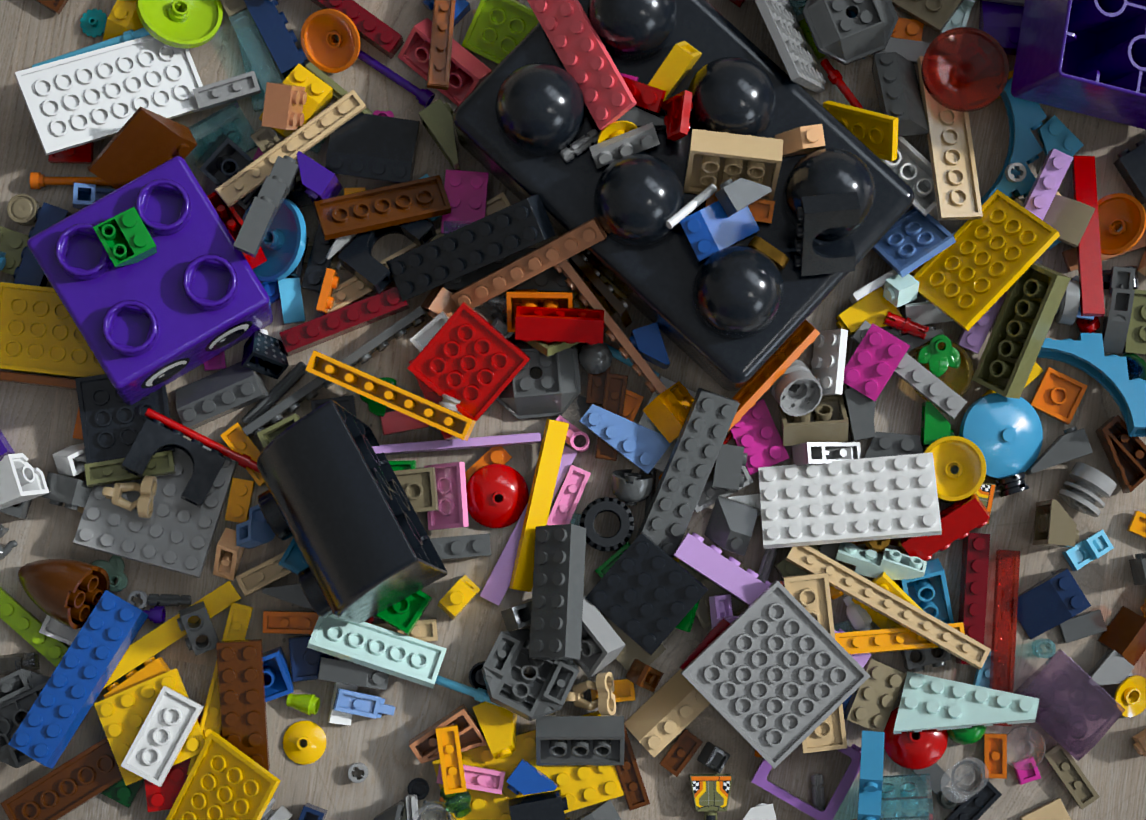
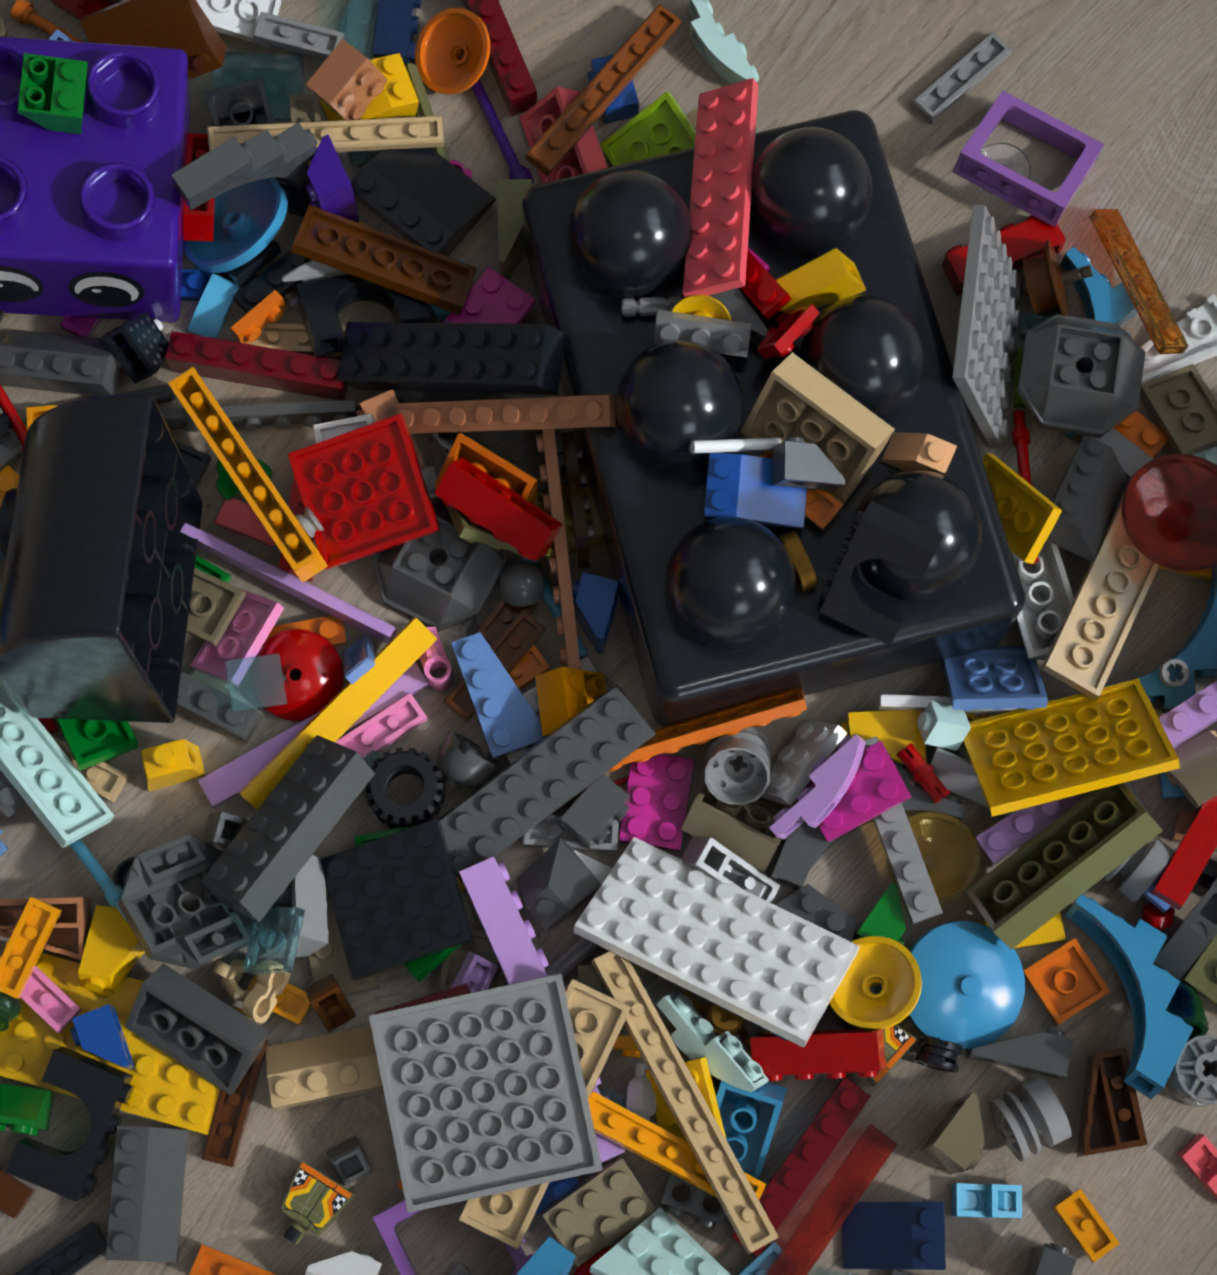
camera: 30 degrees right, 10 degrees down
(479, 518) = (255, 682): none -> clear light blue piece
(529, 464) = (358, 658): none -> medium blue tile
(596, 664) = (274, 941): none -> clear light blue plate
(681, 752) = (311, 1127): reddish brown plate -> none
(858, 365) = (832, 781): none -> lavender slope
(939, 358) = (939, 839): green plate -> none

